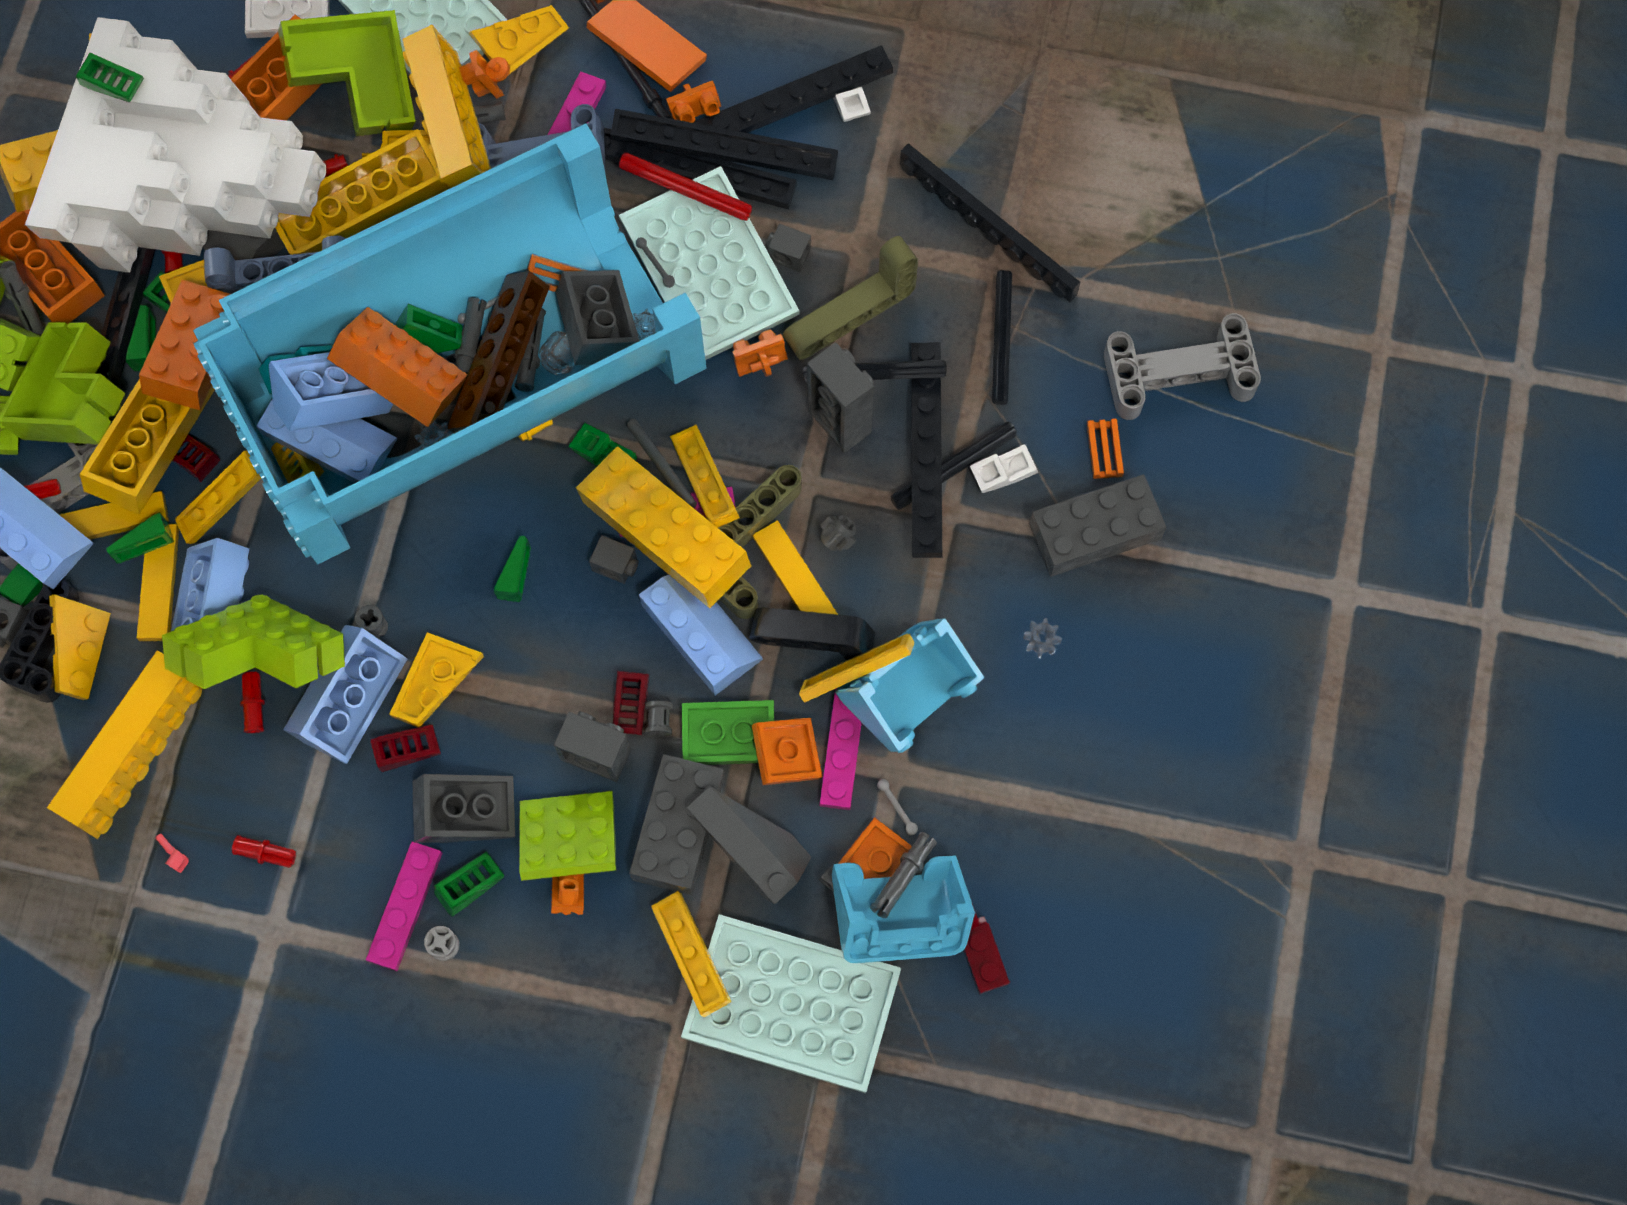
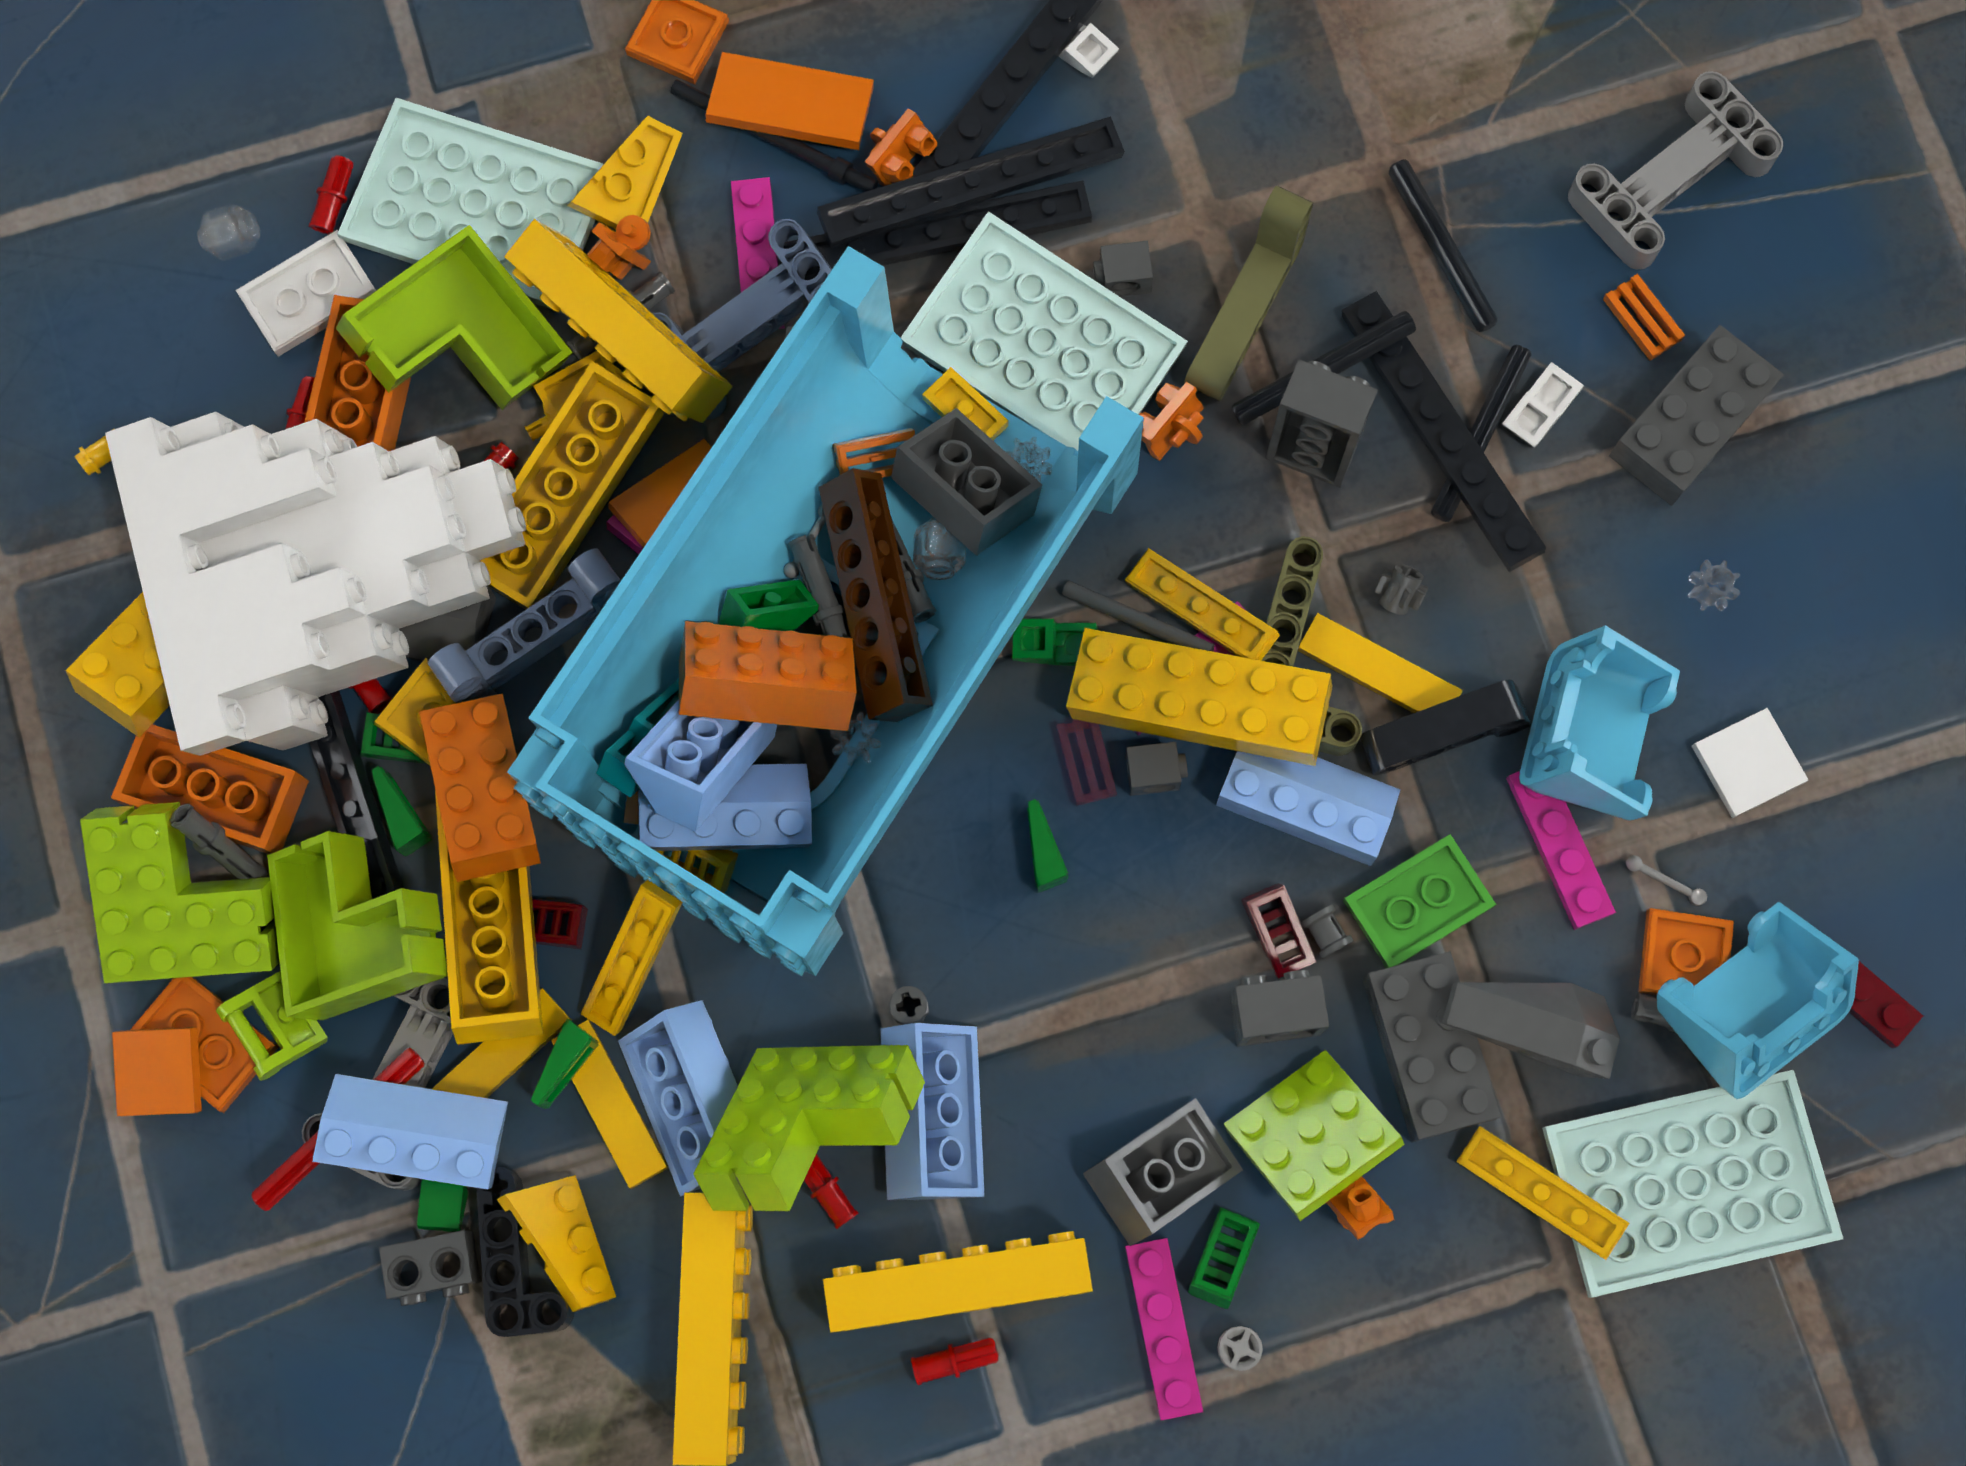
camera: 25 degrees left, 5 degrees up
(94, 63) = (147, 492): green slope -> none
(177, 860) = (854, 1429): coral hand -> none
(291, 803) = (957, 1284): none -> yellow brick
(402, 737) = (1025, 1165): dark red slope -> none
(432, 678) = (1024, 1032): yellow wing -> none
(583, 510) = (1078, 727): none -> clear pink tile
(632, 275) = (954, 392): none -> yellow plate
(668, 280) = (1010, 388): dark grey hinge -> none
(685, 186) = (970, 259): red axle -> none
(786, 751) = (1504, 887): orange tile -> none
(857, 667) = (1533, 741): yellow tile -> none
(910, 865) = (1733, 960): dark grey pin -> none
(993, 226) = (1344, 112): black plate -> none
(997, 763) = (1749, 763): none -> white tile

